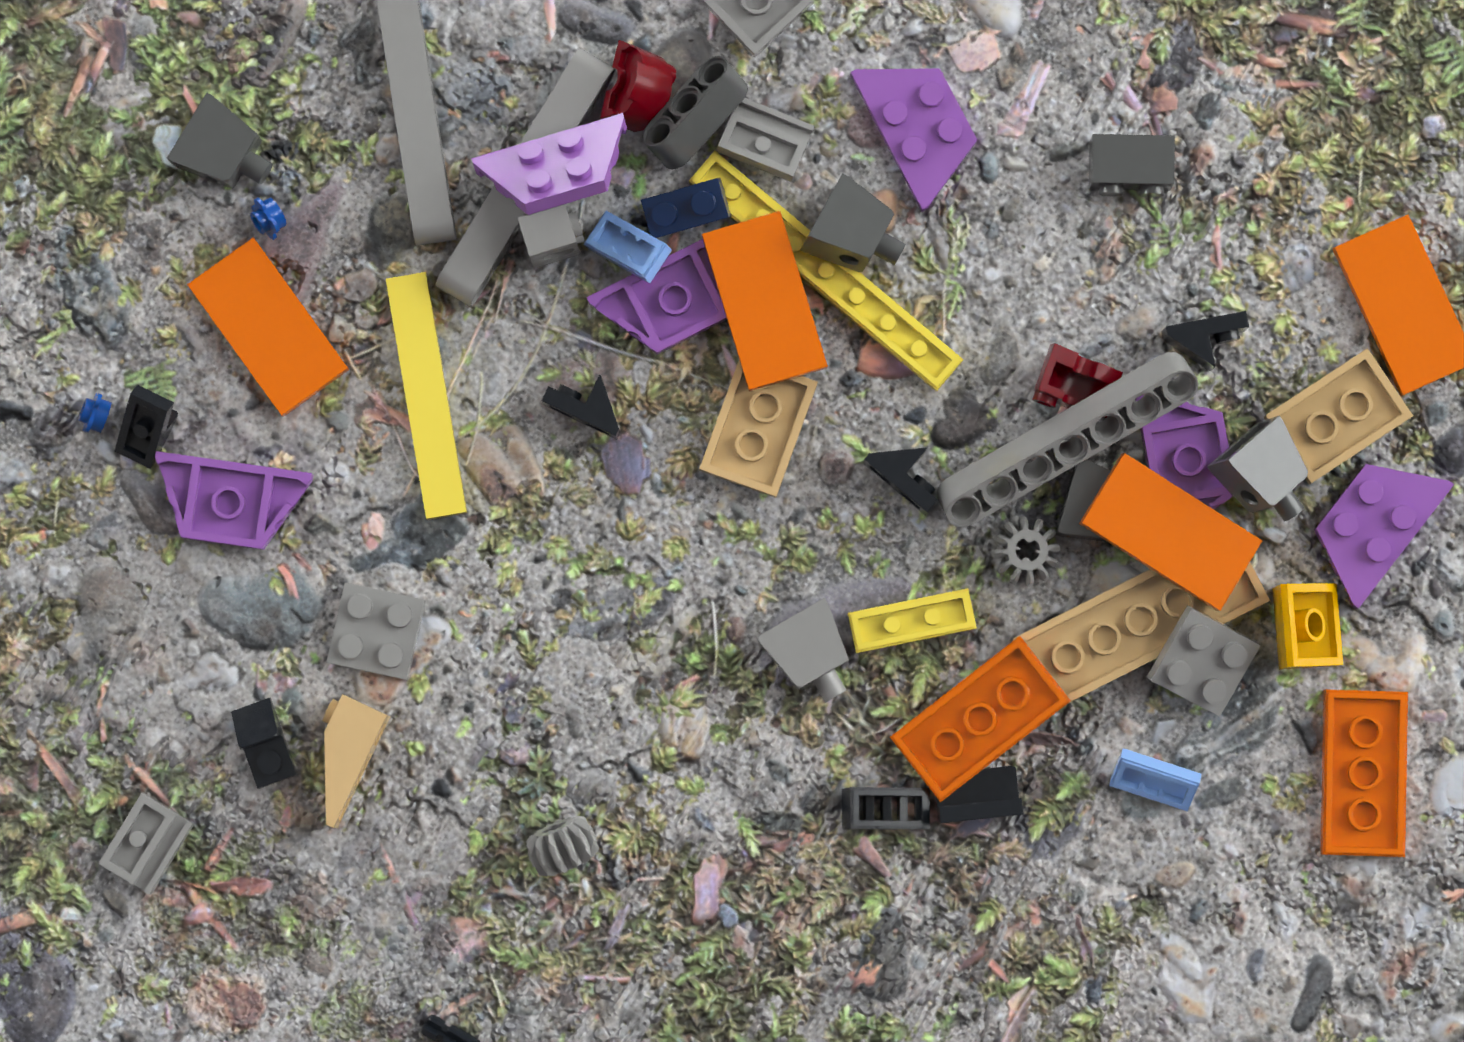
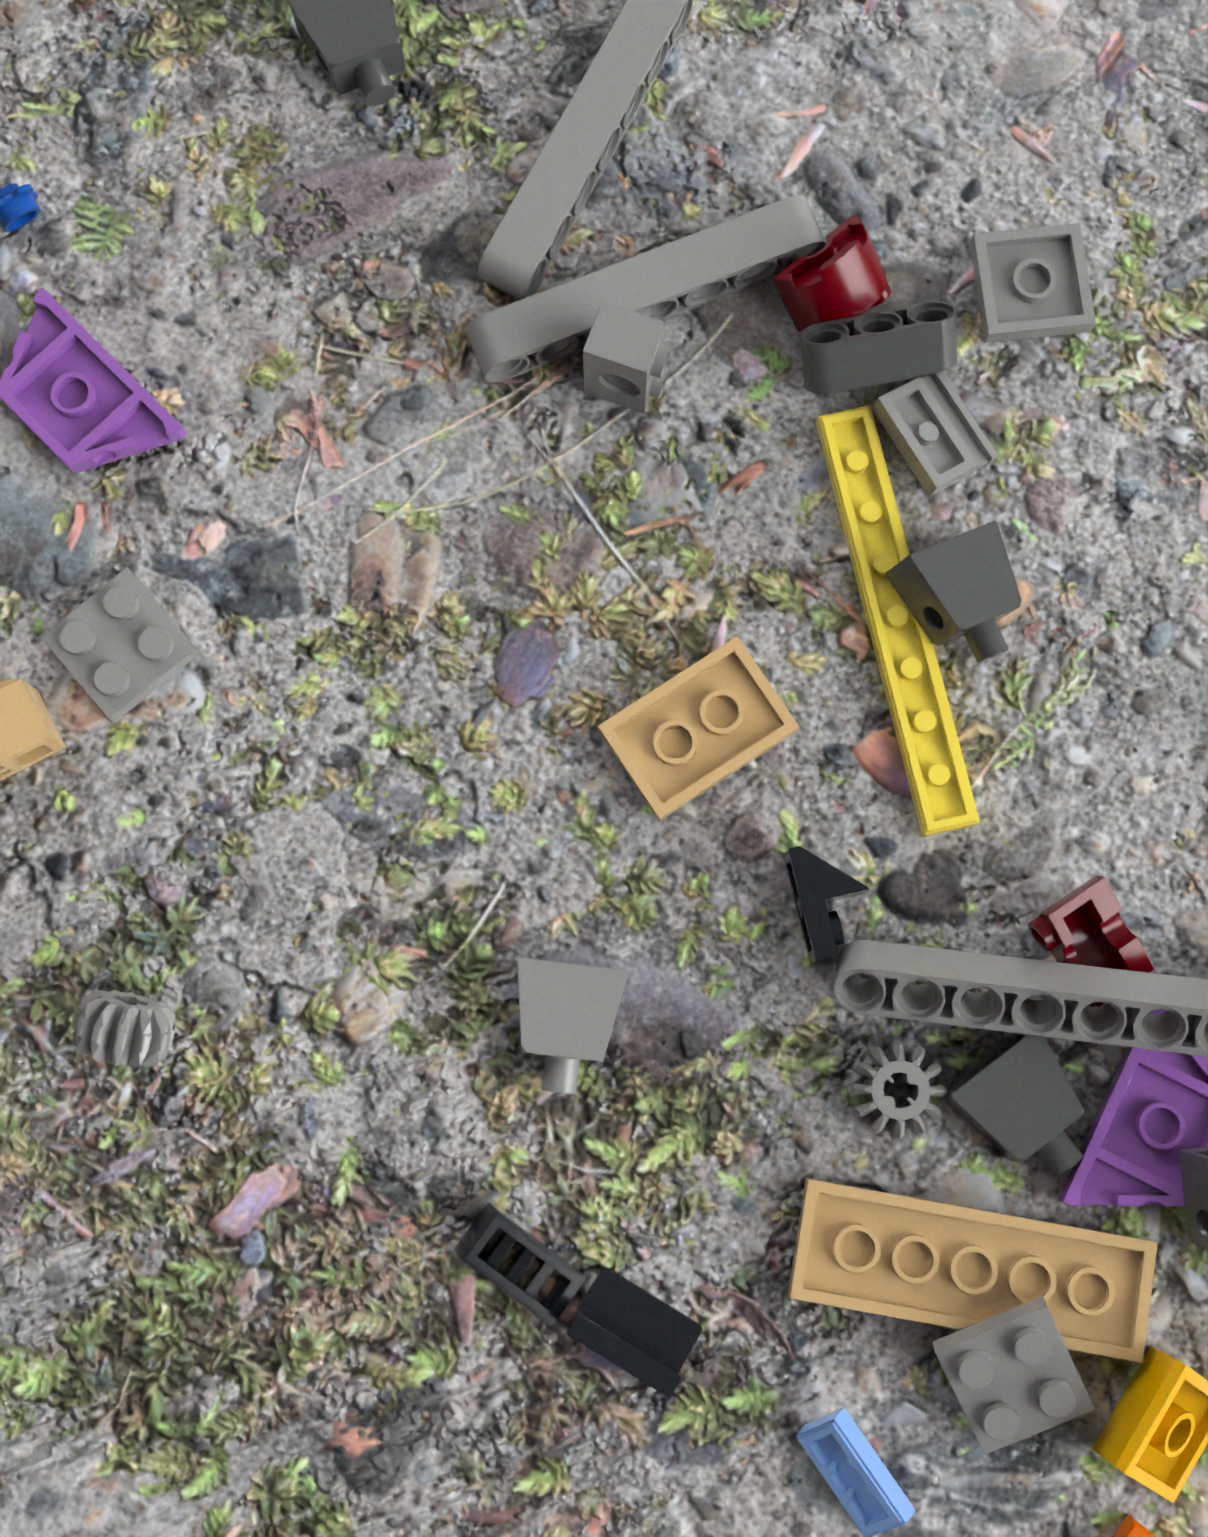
camera: 35 degrees right, 5 degrees down
(145, 426) = (54, 253): black slope -> none
(267, 217) = (347, 139): blue plate -> none
(268, 327) = (261, 252): orange tile -> none
(426, 395) = (367, 440): light yellow tile -> none
(556, 166) = (688, 286): wing -> none
(595, 413) = (532, 581): black slope -> none
(627, 246) = (700, 435): light blue plate -> none
(670, 308) = (710, 522): medium lavender wing -> none
(686, 208) = (794, 441): dark blue plate -> none
(764, 301) = (806, 597): orange tile -> none
(912, 620) = (709, 1071): light yellow tile -> none
(918, 125) = (1112, 536): medium lavender wing -> none
(980, 718) = (703, 1244): orange tile -> none
(1170, 532) = (1085, 1196): orange tile -> none

